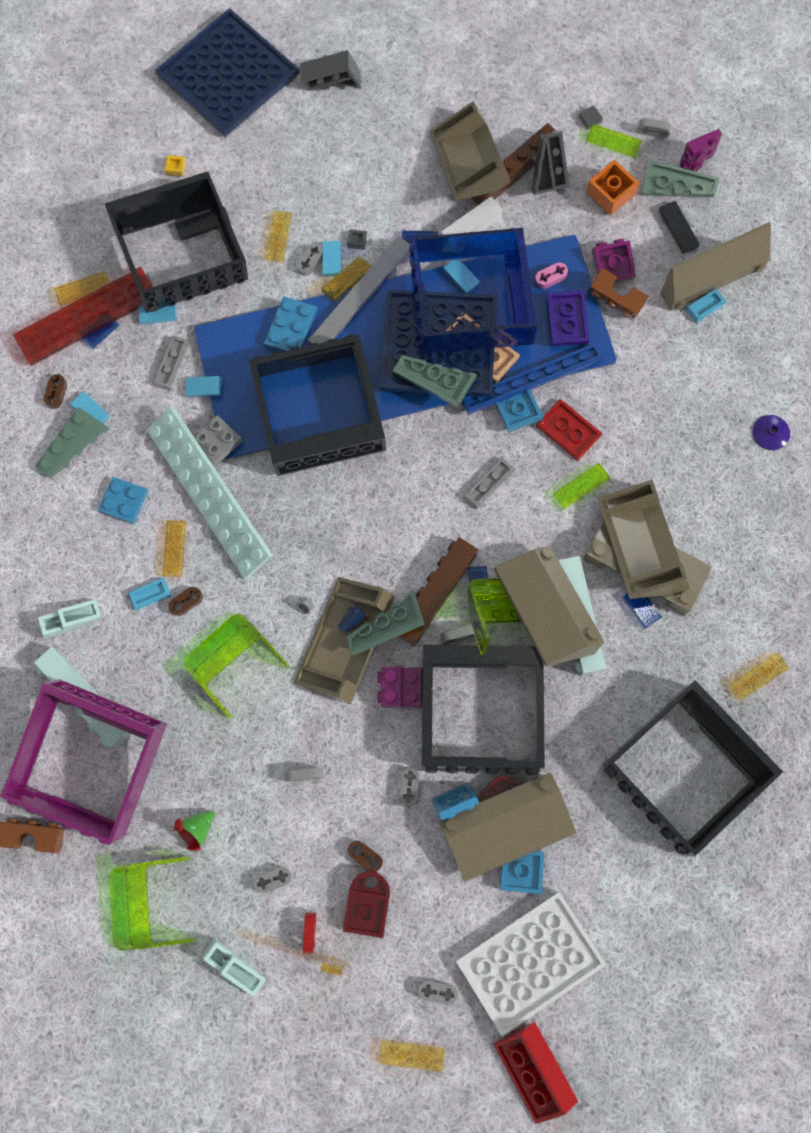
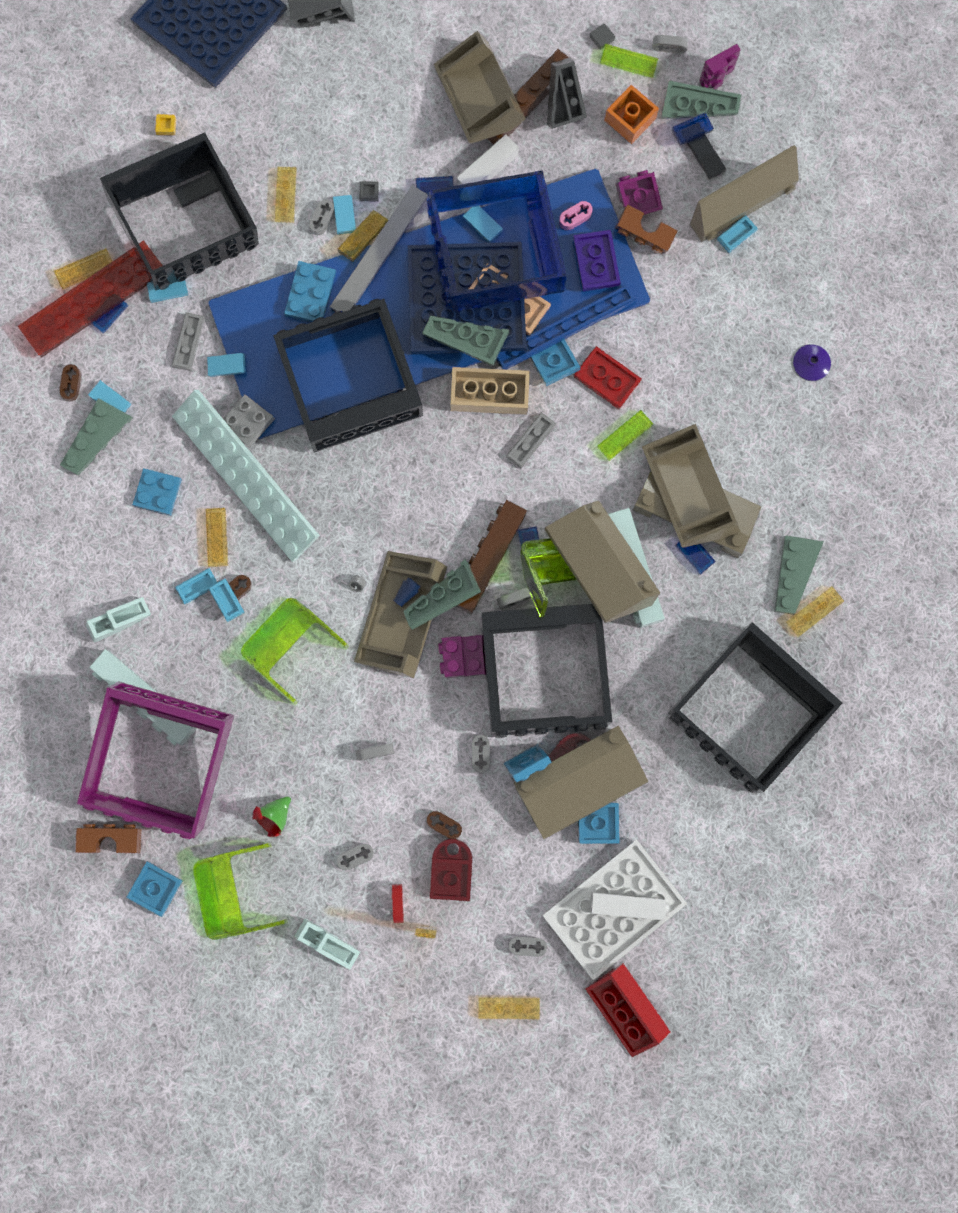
camera: 15 degrees left, 5 degrees up
(68, 891) = (154, 889): none -> dark azure plate
(175, 610) = (226, 600): none -> medium azure tile
(452, 431) = (490, 390): none -> tan brick
(546, 962) = (629, 906): none -> white brick
(669, 205) = (692, 129): none -> clear blue tile
(742, 631) = (795, 570): none -> sand green wing

